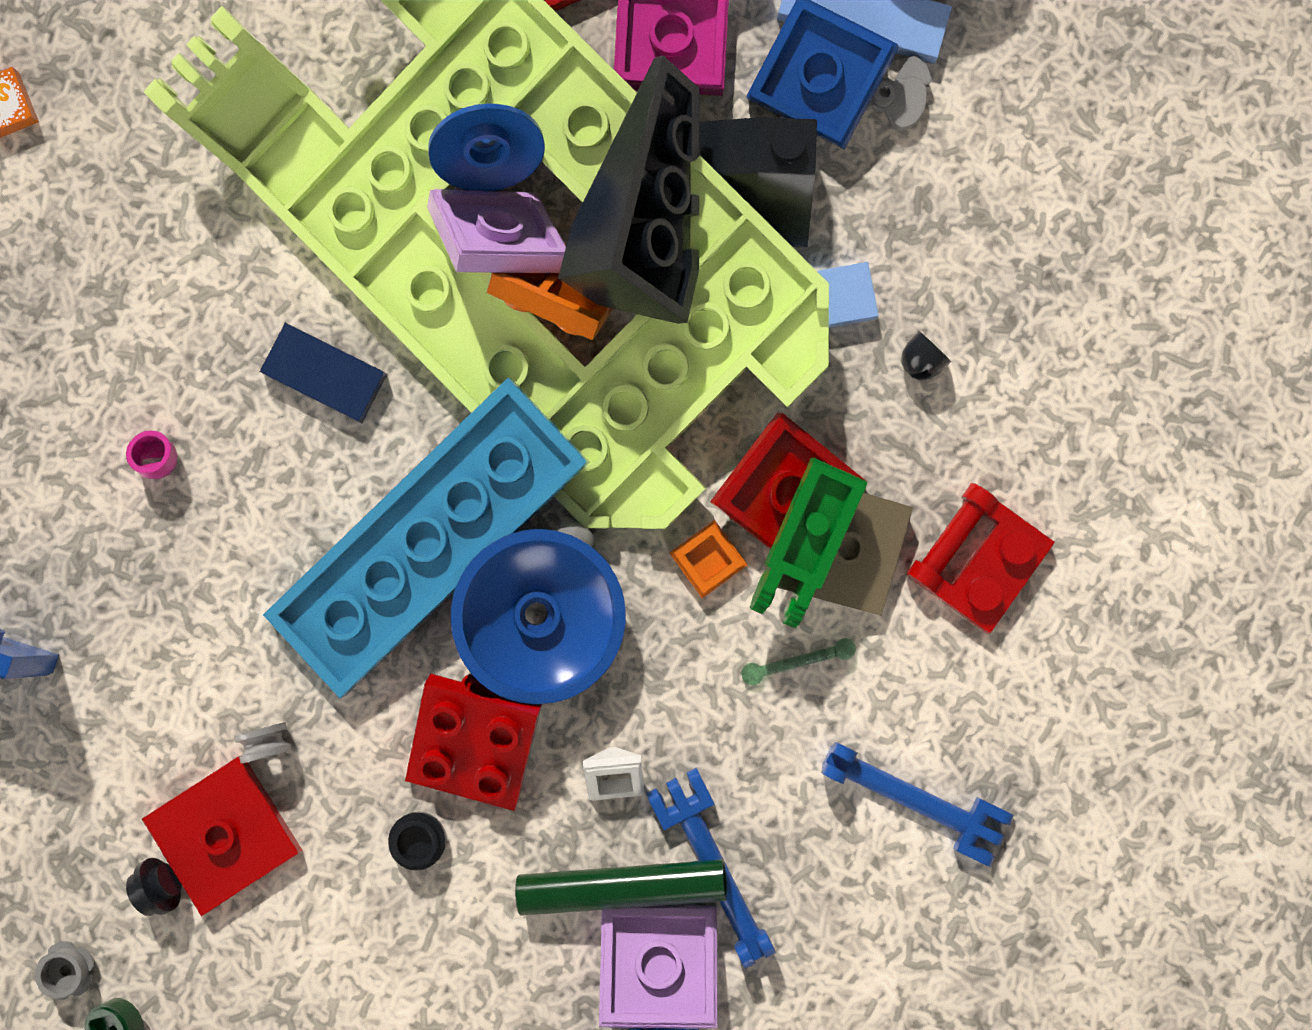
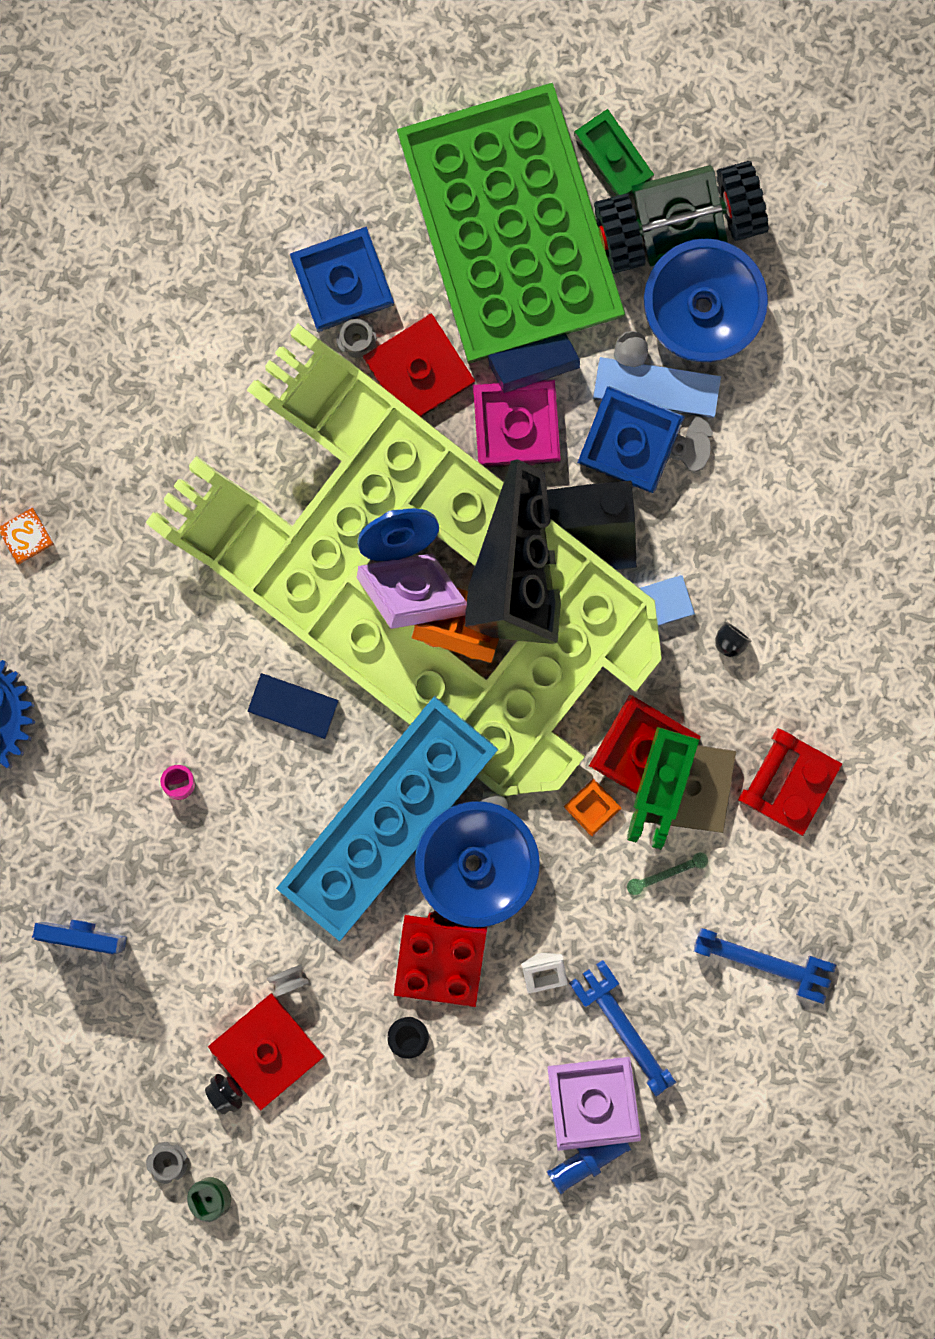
camera: 10 degrees left, 0 degrees up
(621, 887) = (560, 1051): dark green piece -> none

